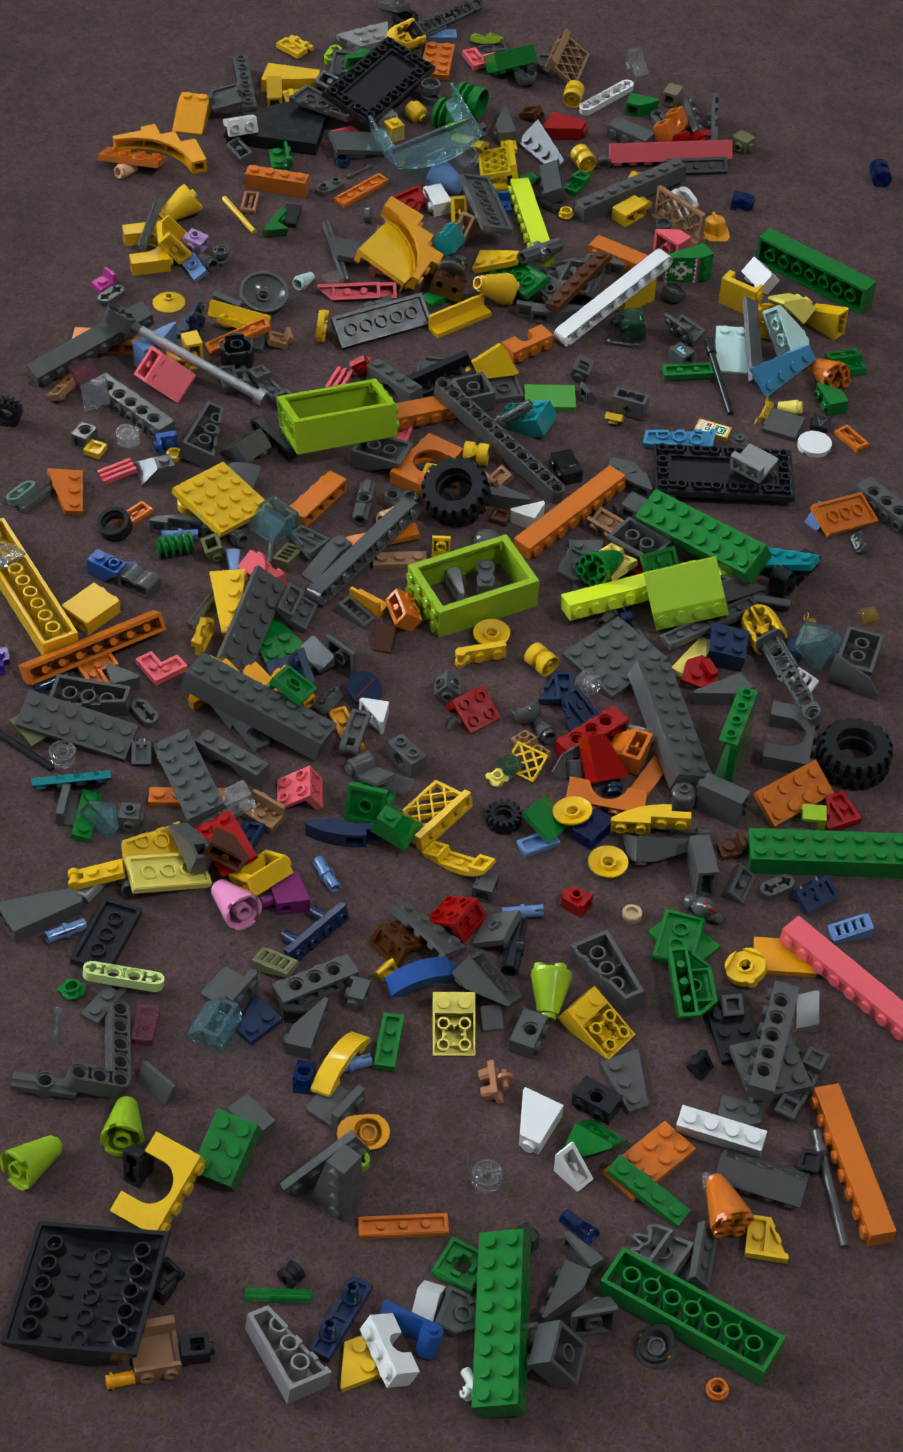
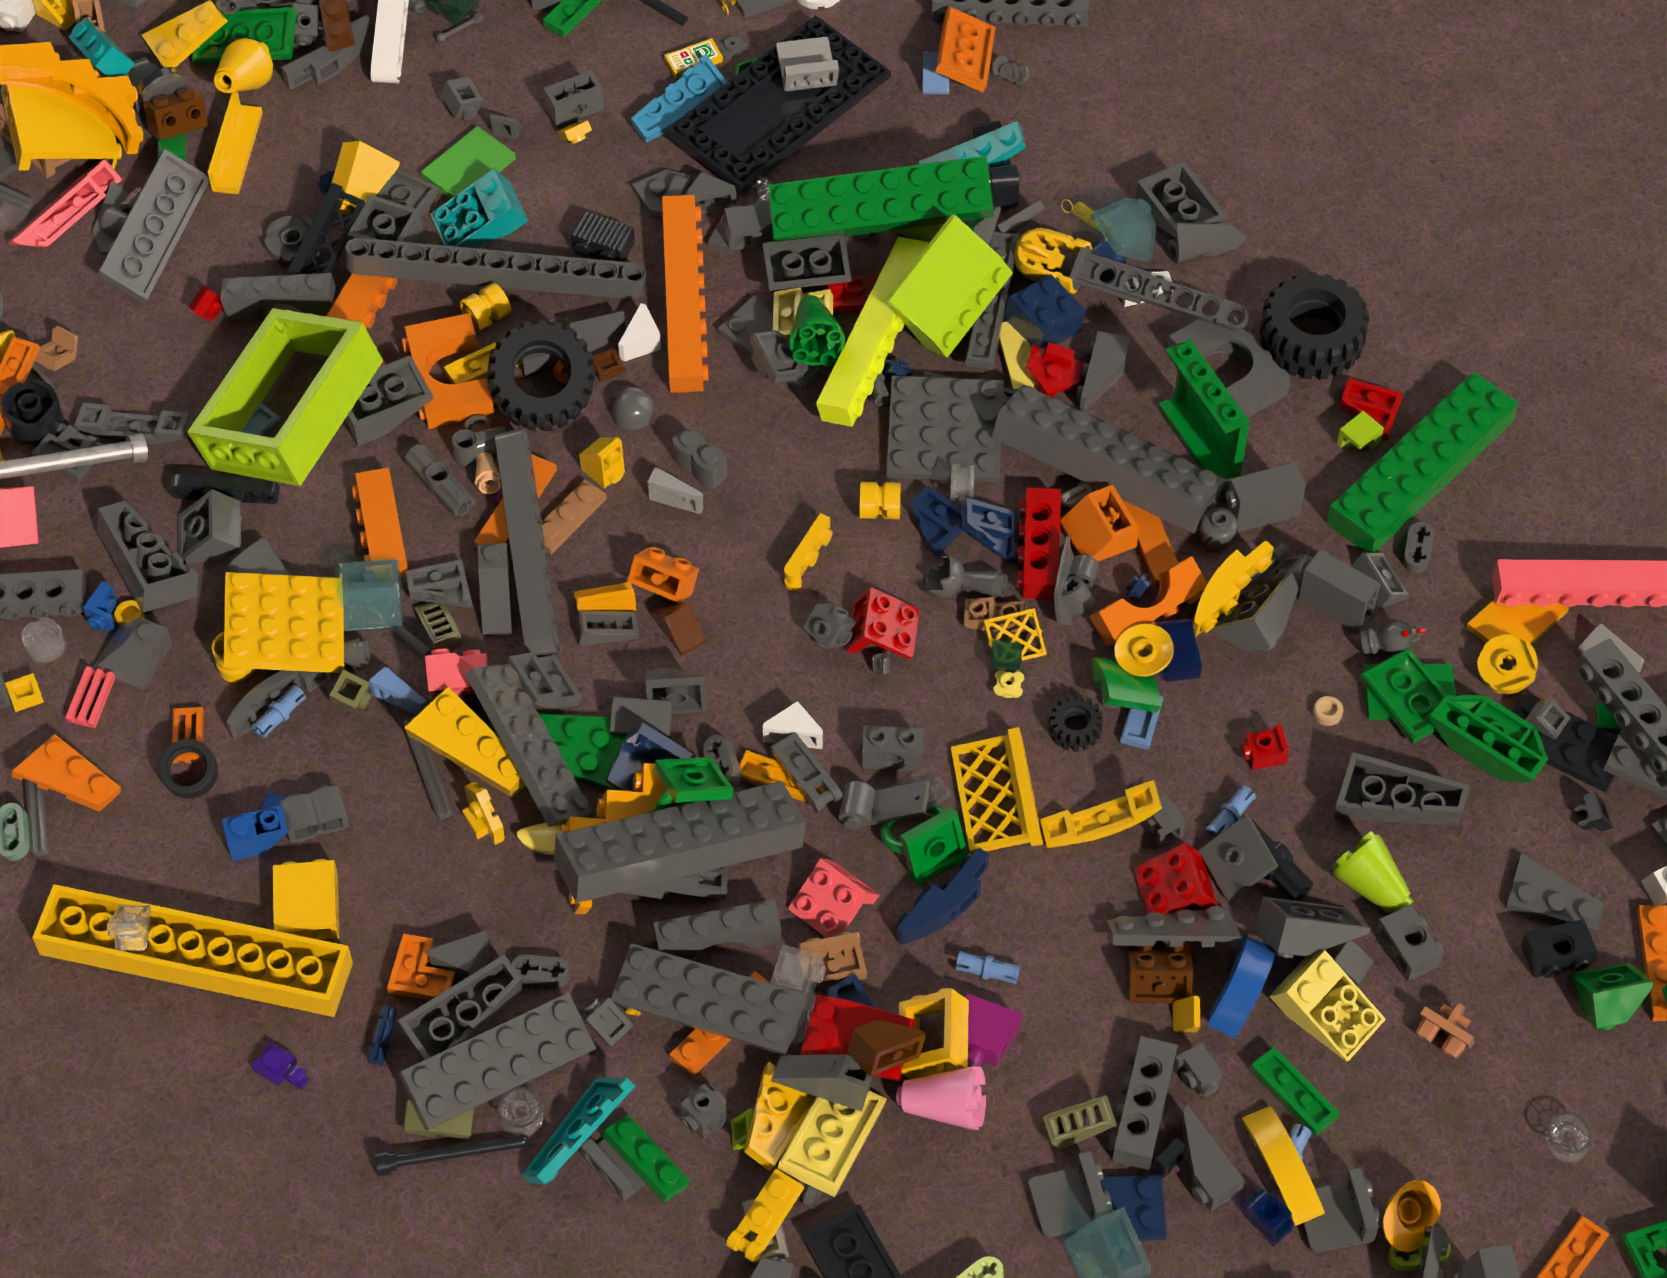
camera: 45 degrees left, 10 degrees up
(92, 647) = (378, 950): orange brick -> none
(101, 816) = (679, 1142): clear light blue slope -> none
(160, 671) = (487, 905): coral plate -> none
(174, 544) = (293, 728): green piece -> none
(321, 325) = (93, 293): yellow plate -> none
(325, 925) = (1076, 1059): dark blue plate -> none
(349, 374) = (198, 326): coral tile -> none
(364, 685) = (742, 709): dark blue piece -> none
(396, 826) = (998, 841): green slope -> none
(488, 605) = (719, 414): lime door -> none
(491, 631) = (786, 506): yellow dish -> none
(499, 477) = (548, 309): medium nougat bracket -> none
(525, 406) = (473, 220): dark grey pin -> none
(538, 340) = (365, 99): orange arch -> none
(538, 1120) = (1536, 1029): white slope -> none
(571, 1167) = (1628, 1044): white slope -> none
(596, 1023) = (1451, 866): yellow slope -> none
(600, 758) = (1100, 564): red slope -> none
(604, 522) = (737, 271): medium nougat bracket -> none
(608, 855) = (1242, 664): yellow dish -> none
(659, 559) = (863, 271): green bracket -> none
(732, 848) = (1328, 538): reddish brown bracket -> none
(788, 794) = (1312, 425): orange plate -> none
(816, 894) = (1462, 520): dark blue bracket -> none
(857, 921) = (1542, 510): medium blue slope -> none
(868, 616) = (1121, 151): clear yellow plate -> none

